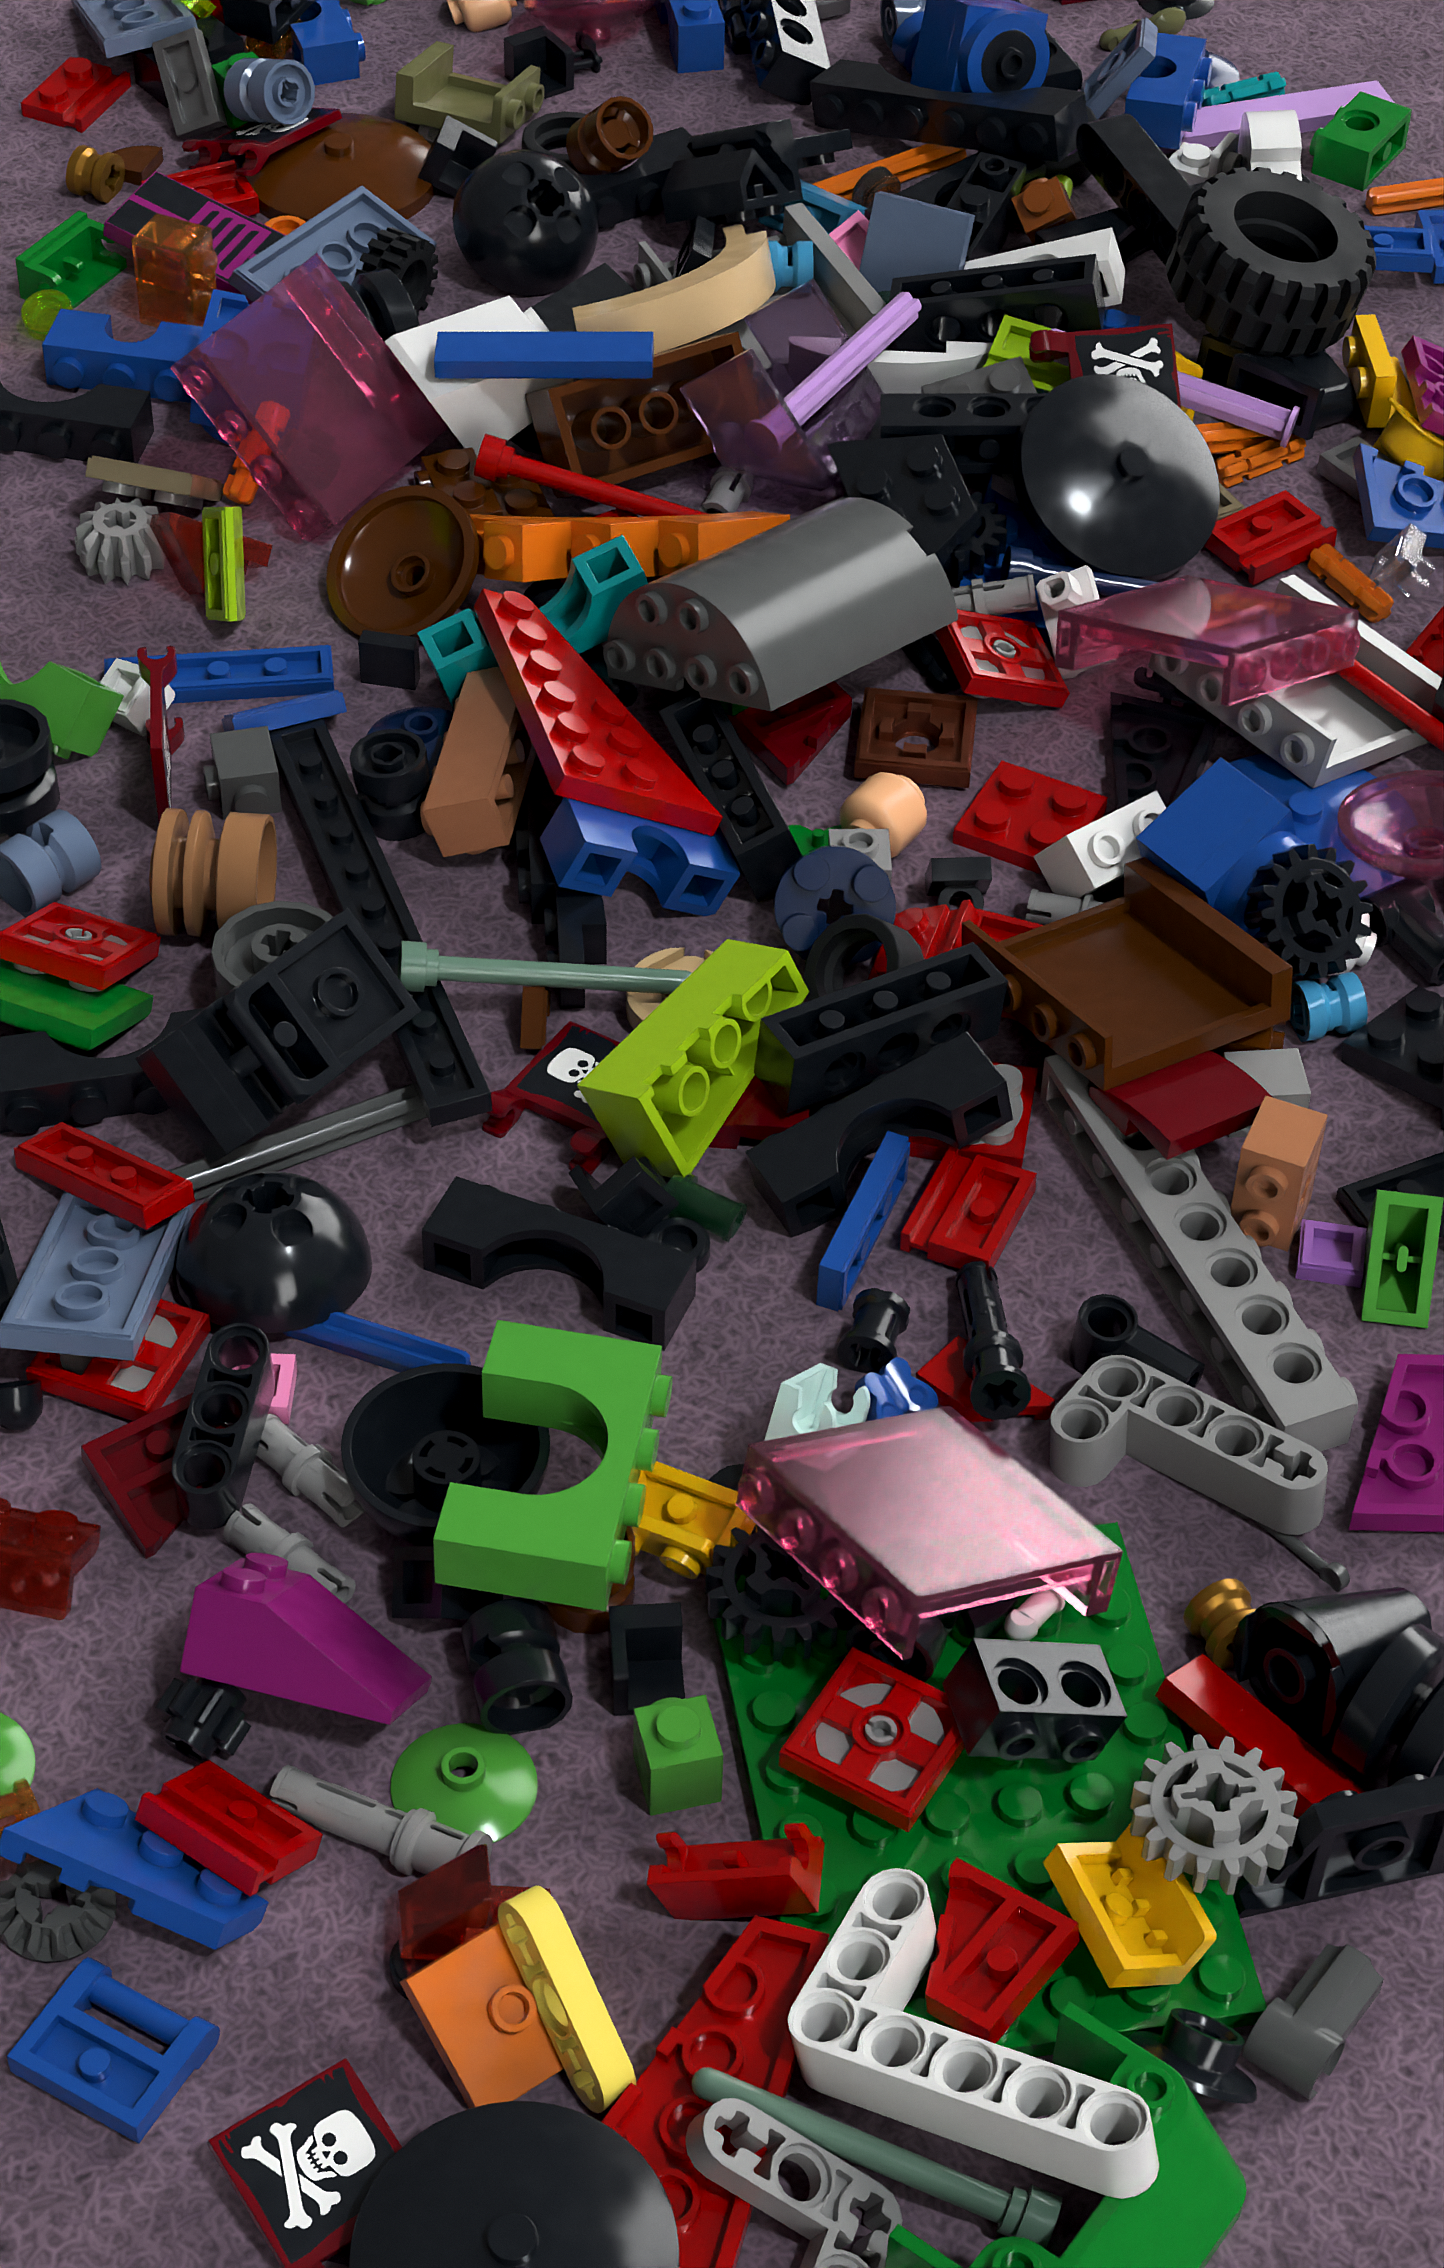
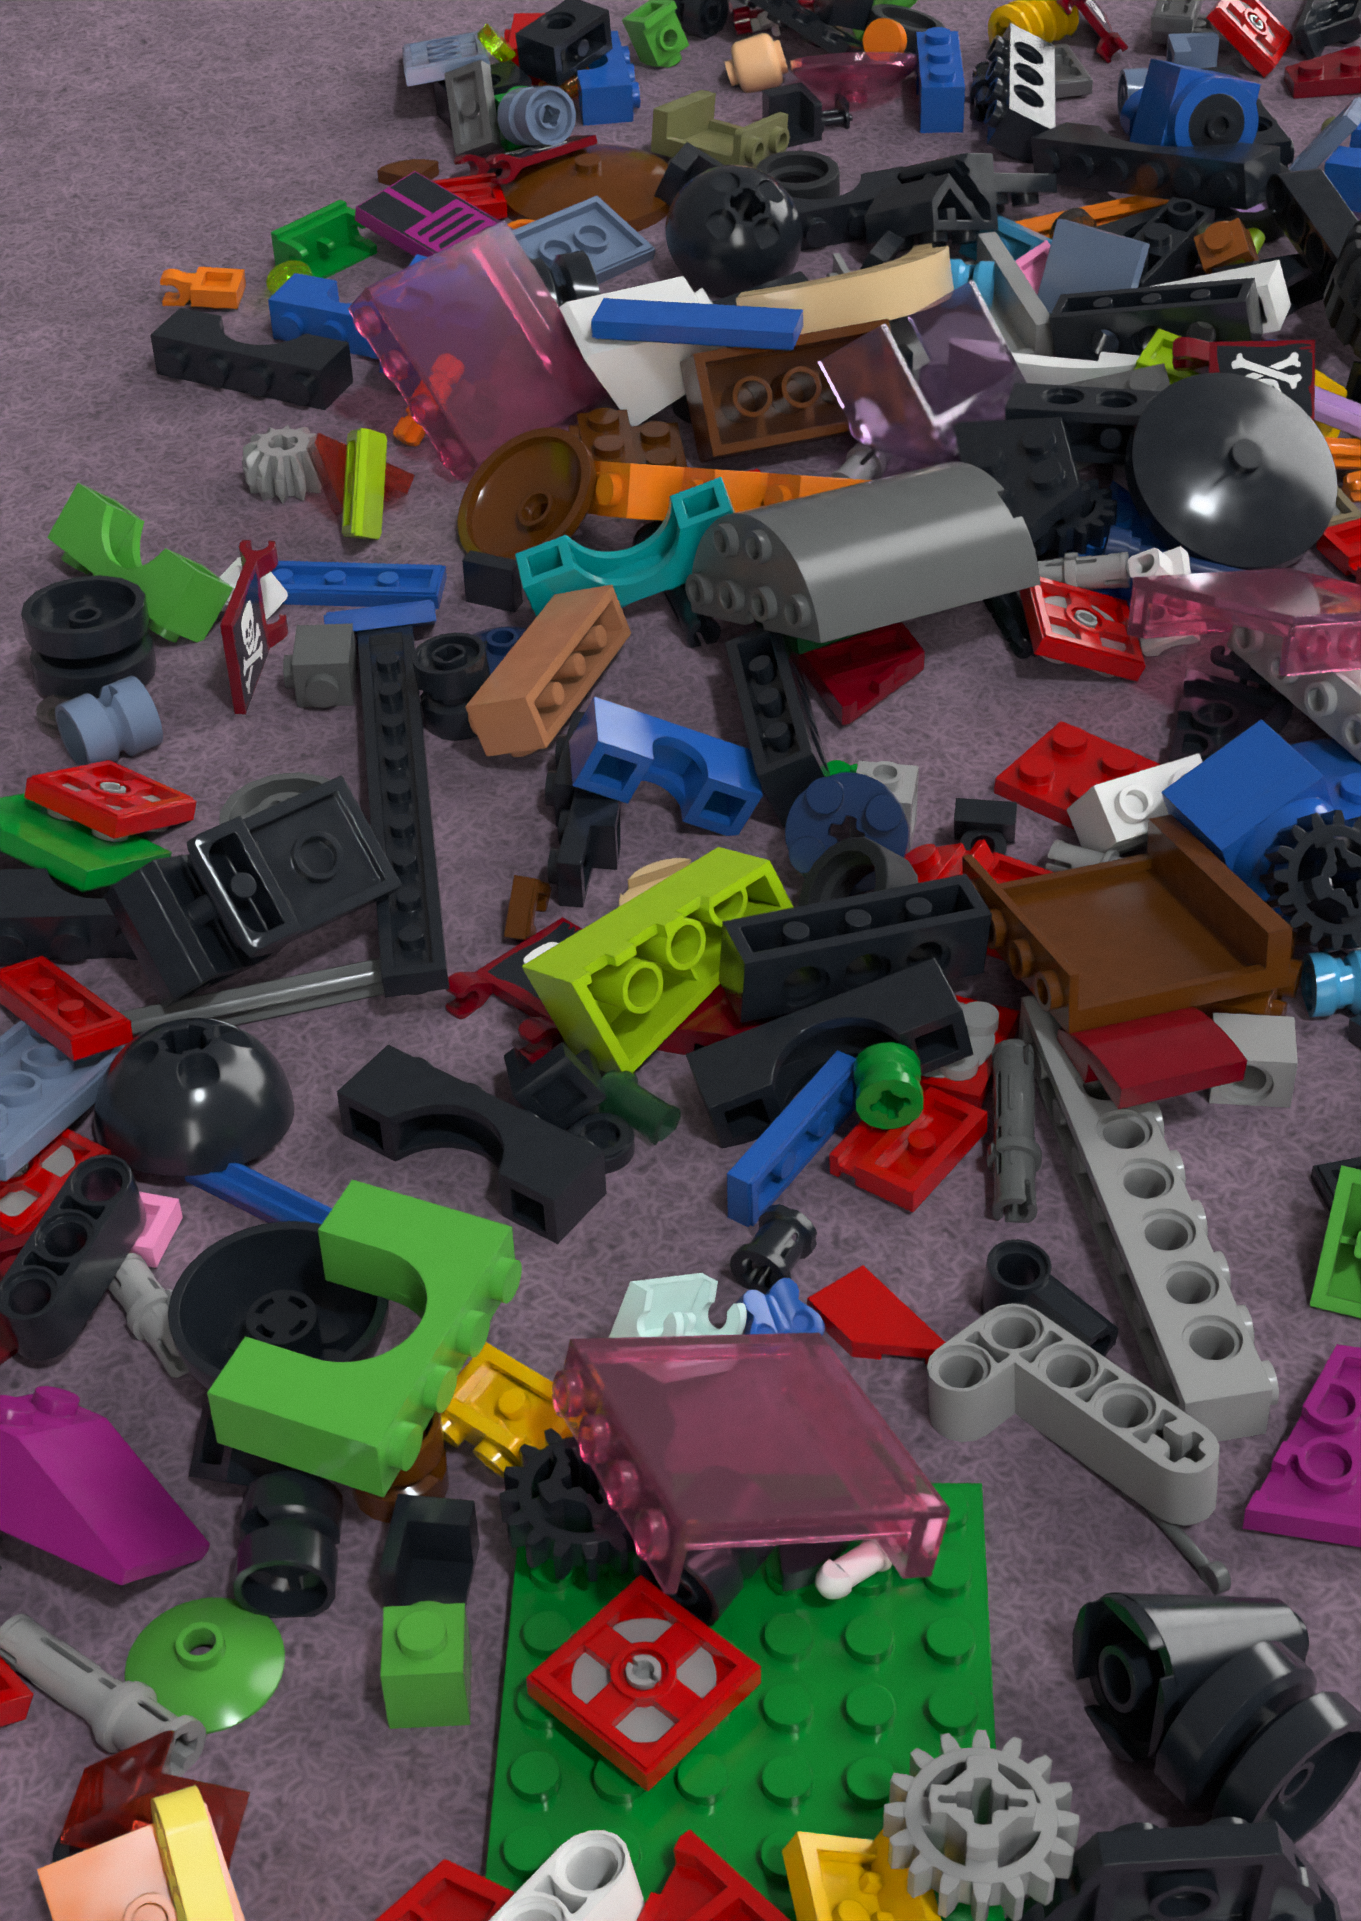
camera: 15 degrees right, 5 degrees down
(75, 94) = (380, 119): red plate -> none
(95, 173) = (369, 175): pearl gold wheel -> none
(140, 480) = (322, 414): dark tan piece -> none
(174, 271) = (398, 233): clear orange brick -> none
(205, 874) = (249, 735): medium nougat wheel -> none
(264, 1536) = (105, 1395): light grey pin -> none
(408, 258) = (612, 254): black tyre -> none
(425, 966) = (418, 845): sand green piece -> none
(500, 461) = (639, 416): red piece -> none
(579, 726) = (638, 648): red wing -> none
(609, 137) = (829, 165): reddish brown wheel -> none
(740, 1876) = (449, 1811): red hinge -> none
(852, 356) = (999, 356): lavender axle -> none
(887, 803) = (935, 747): light nougat head -> none
(897, 714) = (964, 671): copper piece -> none
(945, 1160) = (888, 1085): none -> green wheel
(992, 1354) = (886, 1287): black pin -> none
(1034, 1700) = (817, 1663): black brick -> none
(1068, 1208) = (1014, 1152): none -> dark grey pin
(1216, 1616) = (1059, 1596): pearl gold wheel -> none
(1221, 1707) = (1058, 1722): red tile -> none
(1277, 1172) = (1240, 1138): nougat brick -> none
(1331, 1253) = (1289, 1232): medium lavender tile -> none

